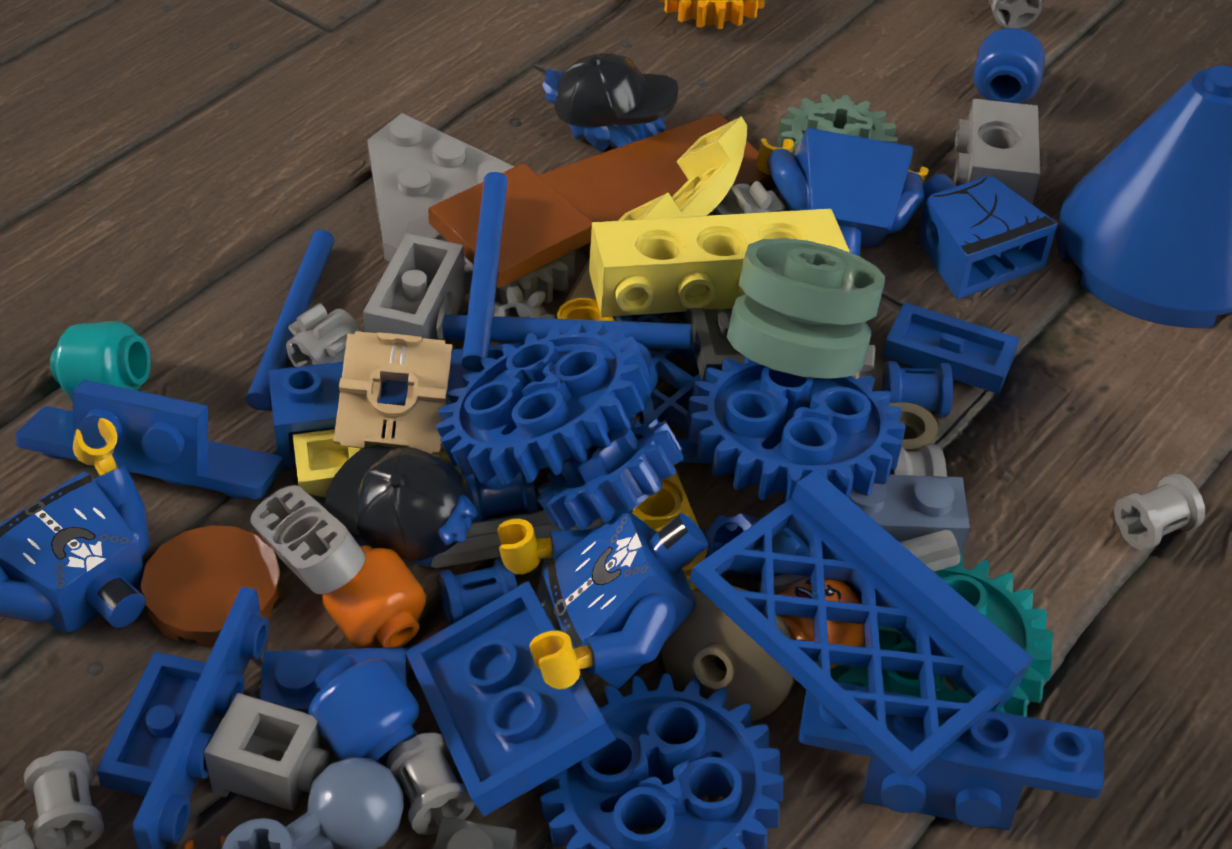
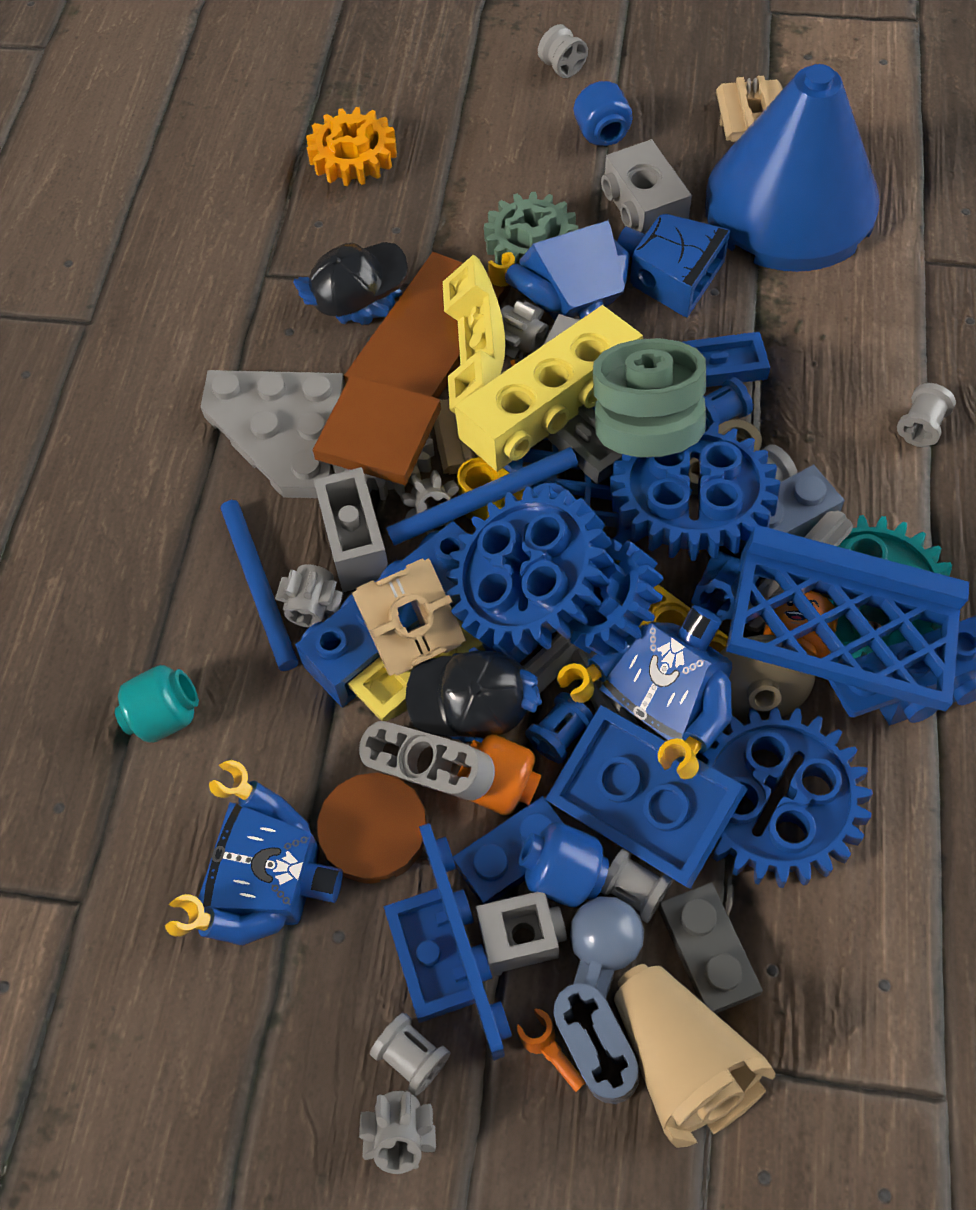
camera: 25 degrees left, 15 degrees up
(154, 439) = (256, 740): blue bracket -> none
(485, 272) = (397, 481): blue bar -> none

